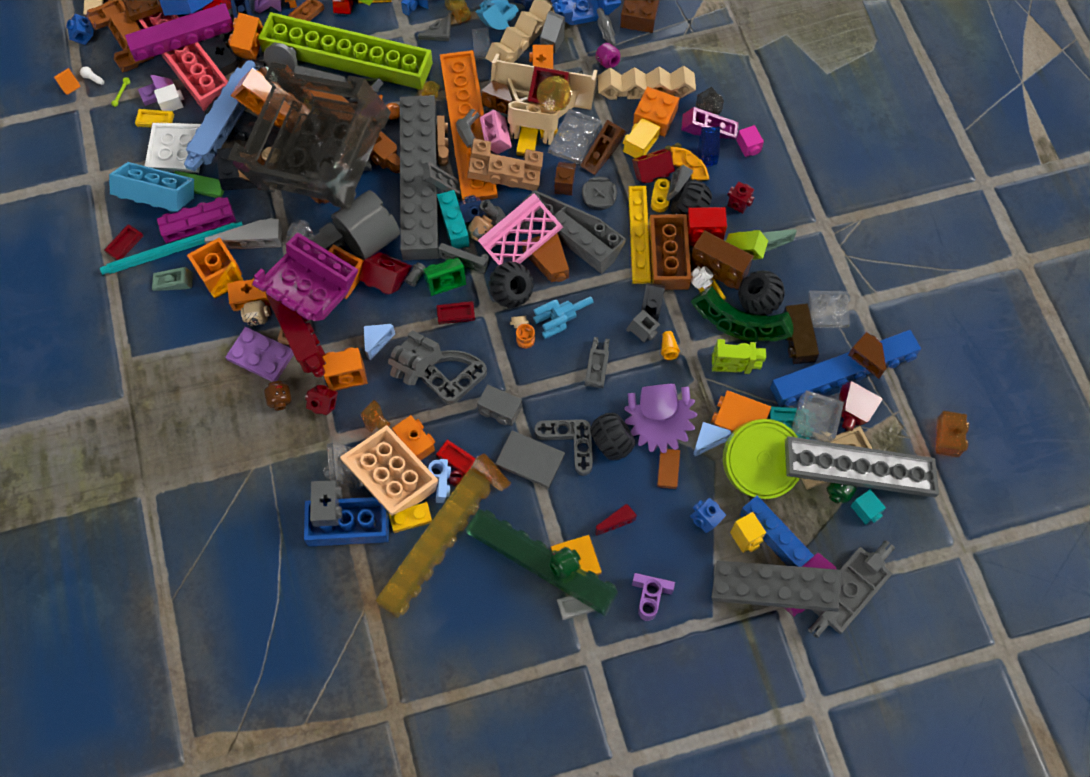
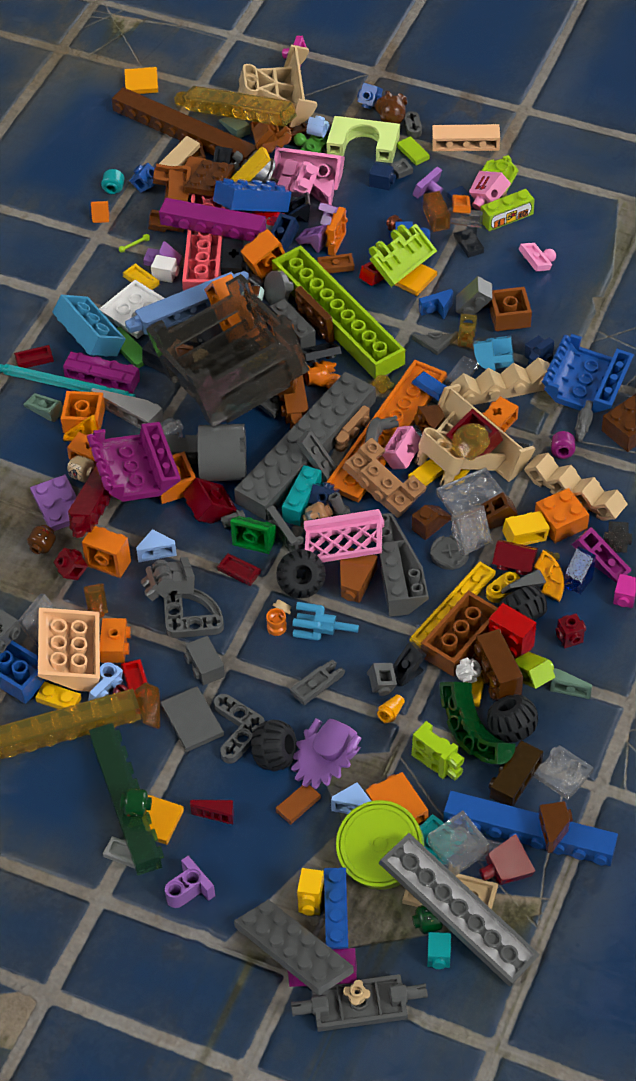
camera: 40 degrees right, 15 degrees down
(54, 48) = (112, 181): none -> teal head
(86, 72) = (121, 214): white piece -> none
(331, 62) = (314, 314): none -> reddish brown plate
(472, 68) = (429, 385): none -> blue tile
(553, 31) = (528, 397): slope -> none
(606, 165) = (471, 530): none -> clear plate
(707, 514) = (292, 856): blue brick -> none
(854, 582) = (356, 999): none -> tan plate
(952, 434) = (575, 946): clear orange brick -> none

